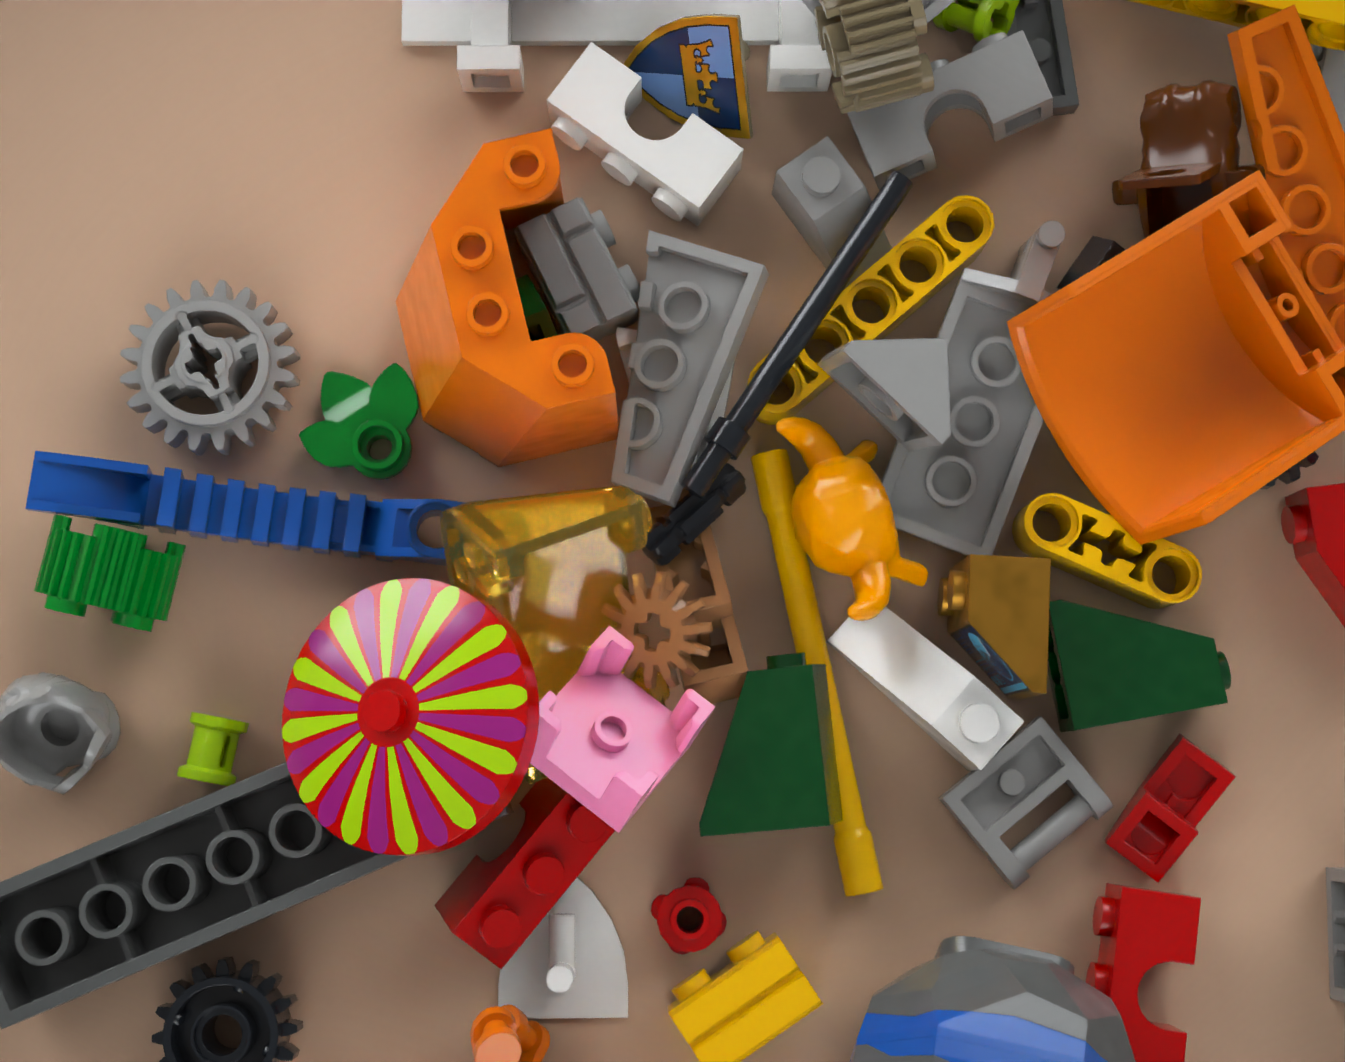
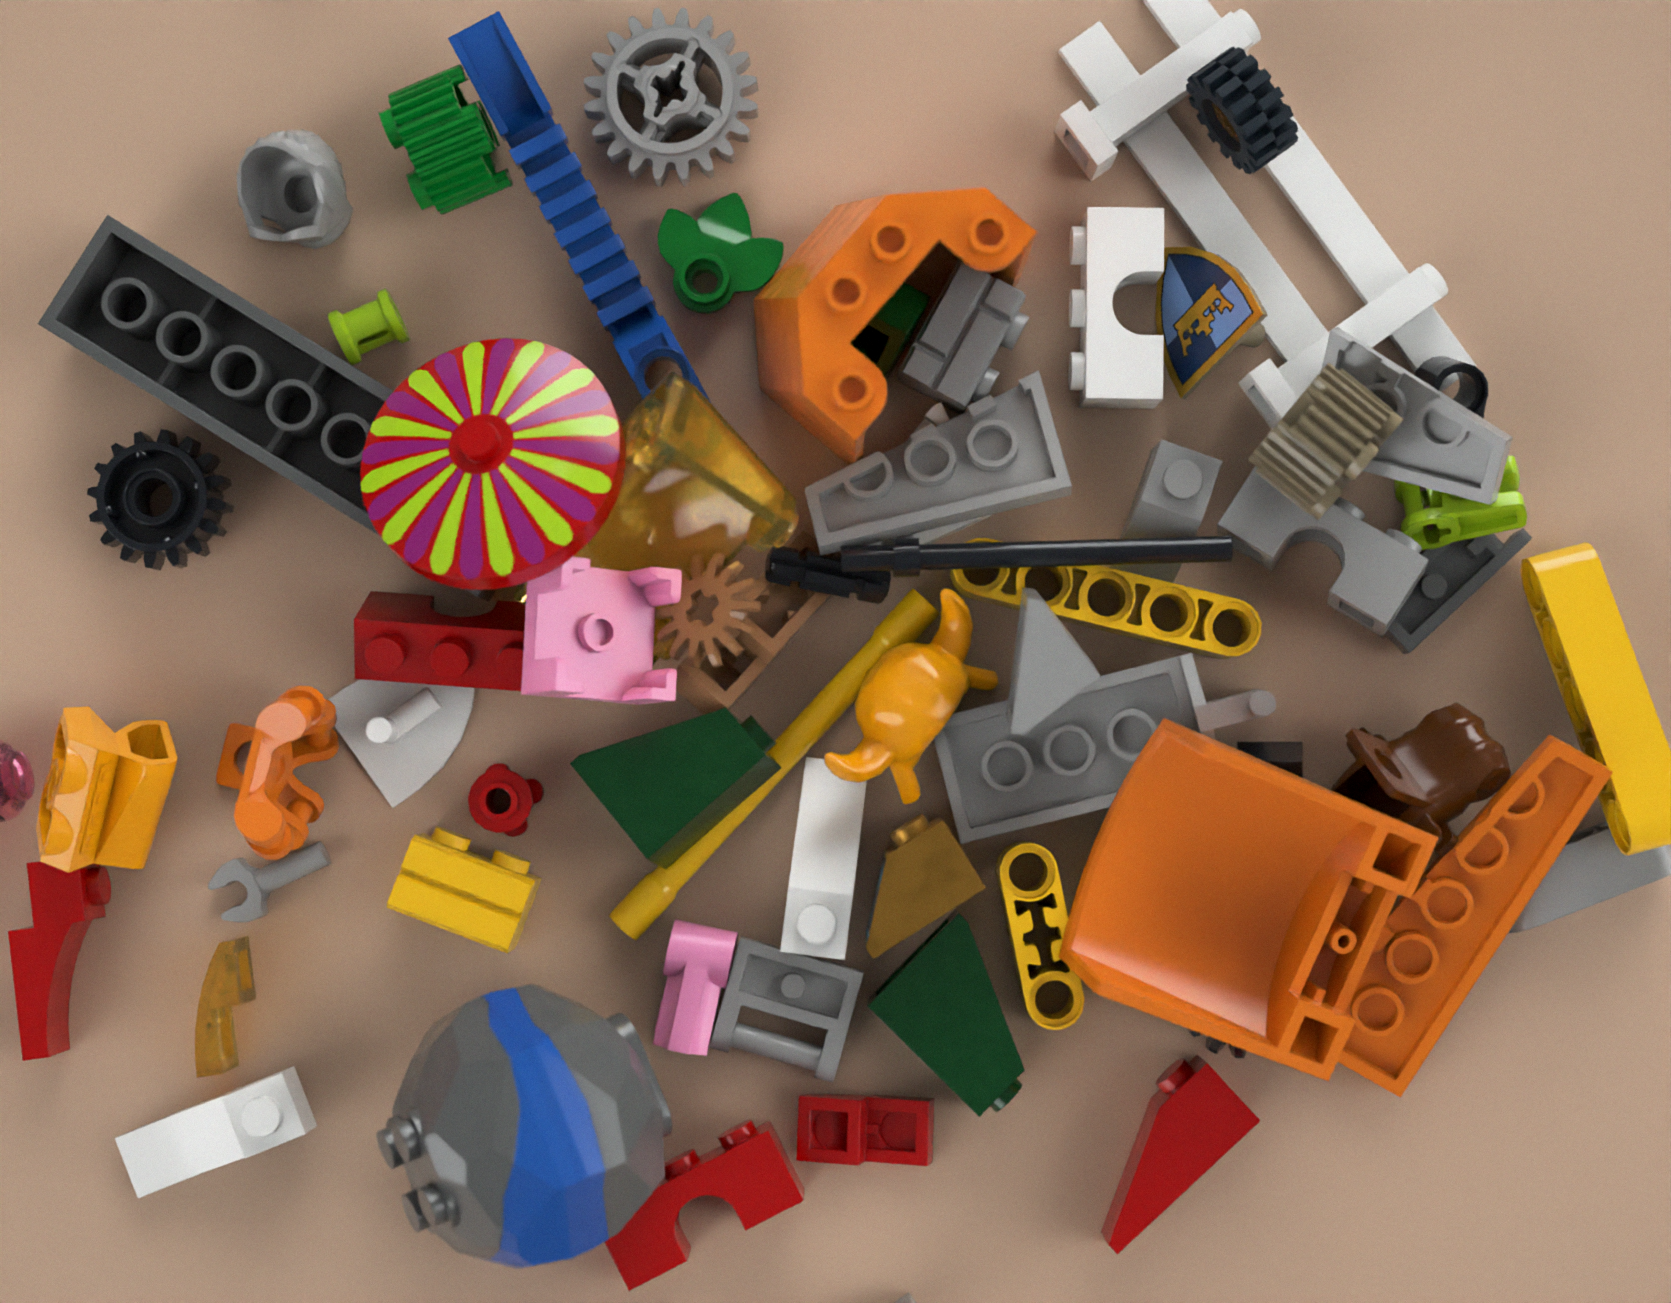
camera: 60 degrees right, 5 degrees up
(944, 854) = (696, 970): none -> bright pink piece

